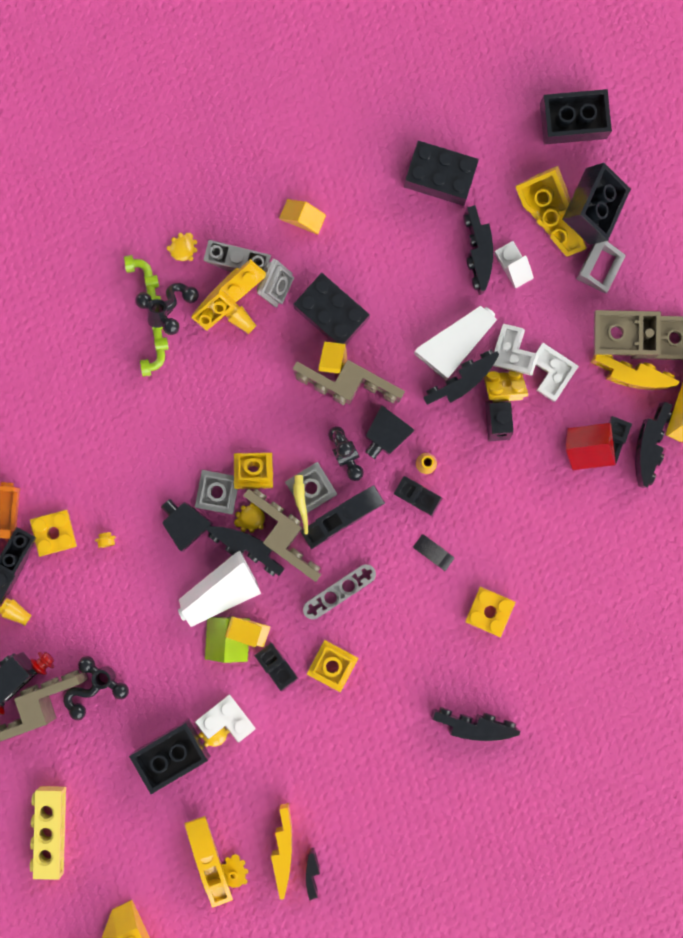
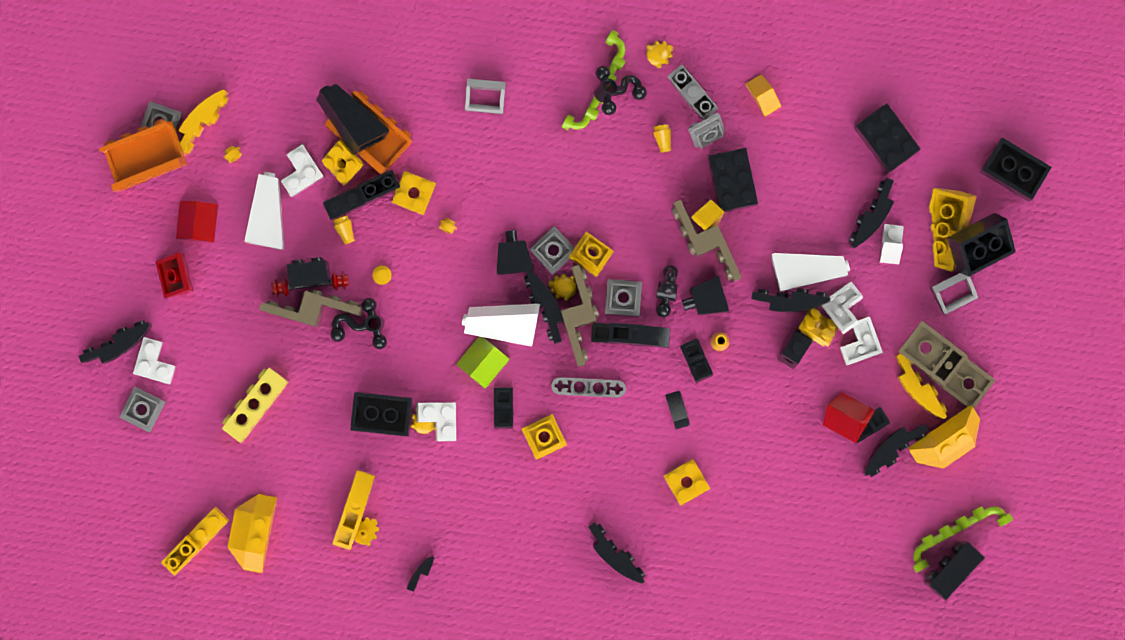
camera: 40 degrees right, 0 degrees up
(48, 388) = (485, 85): none -> light grey tile
(79, 628) = (382, 275): none -> yellow plate
(227, 293) = (666, 112): yellow slope -> none
(247, 632) = (502, 366): yellow slope -> none
(282, 857) = (407, 547): yellow slope -> none
(299, 496) = (610, 297): light yellow animal -> none

